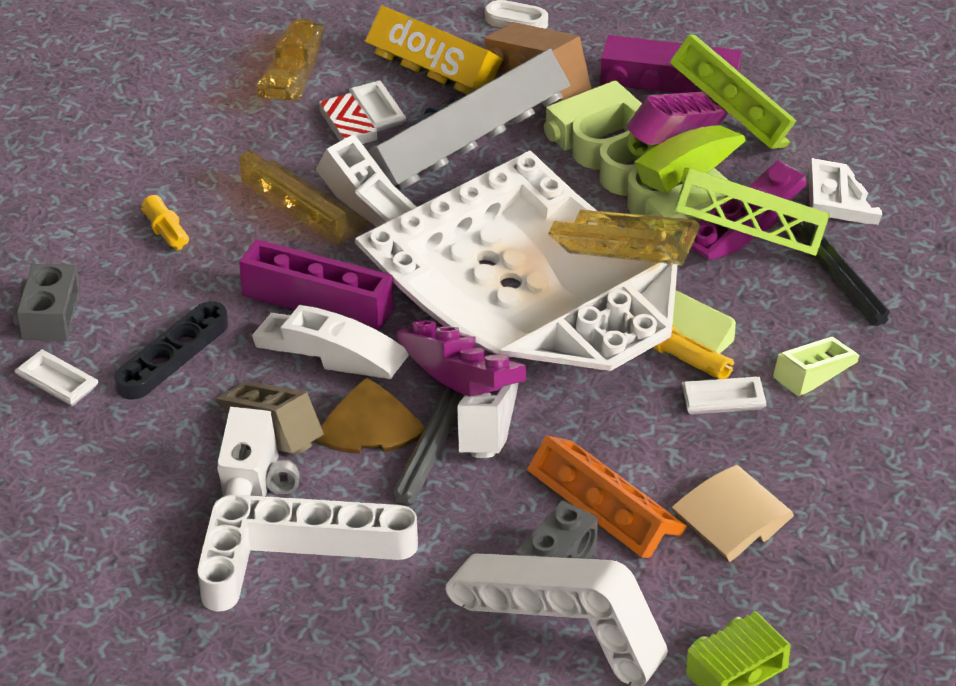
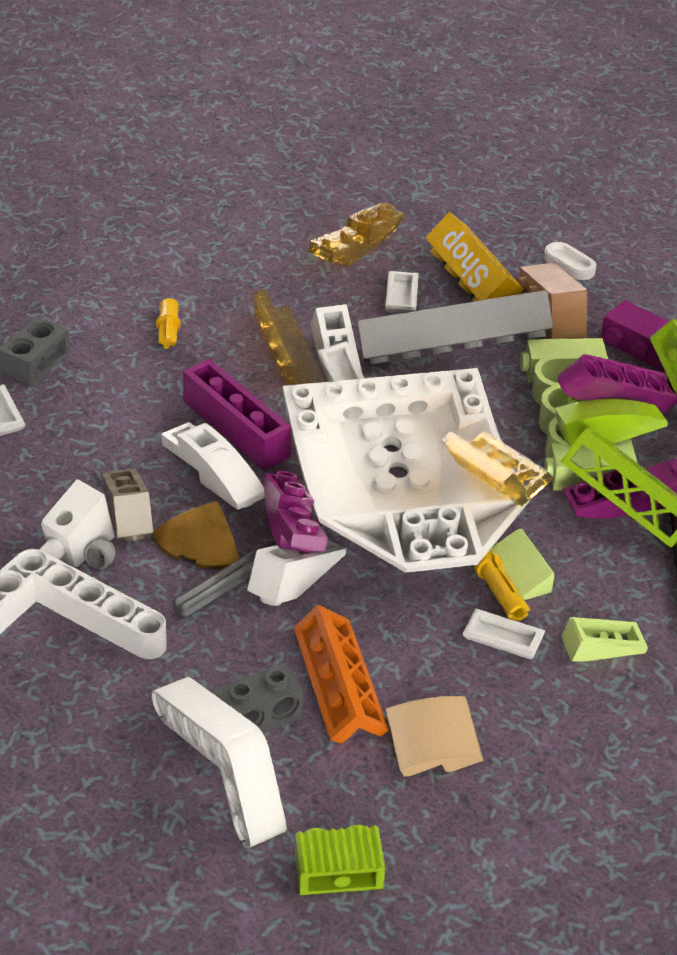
camera: 25 degrees right, 0 degrees up
(166, 347) = (96, 419): black beam -> none
(347, 118) = (370, 295): white tile -> none

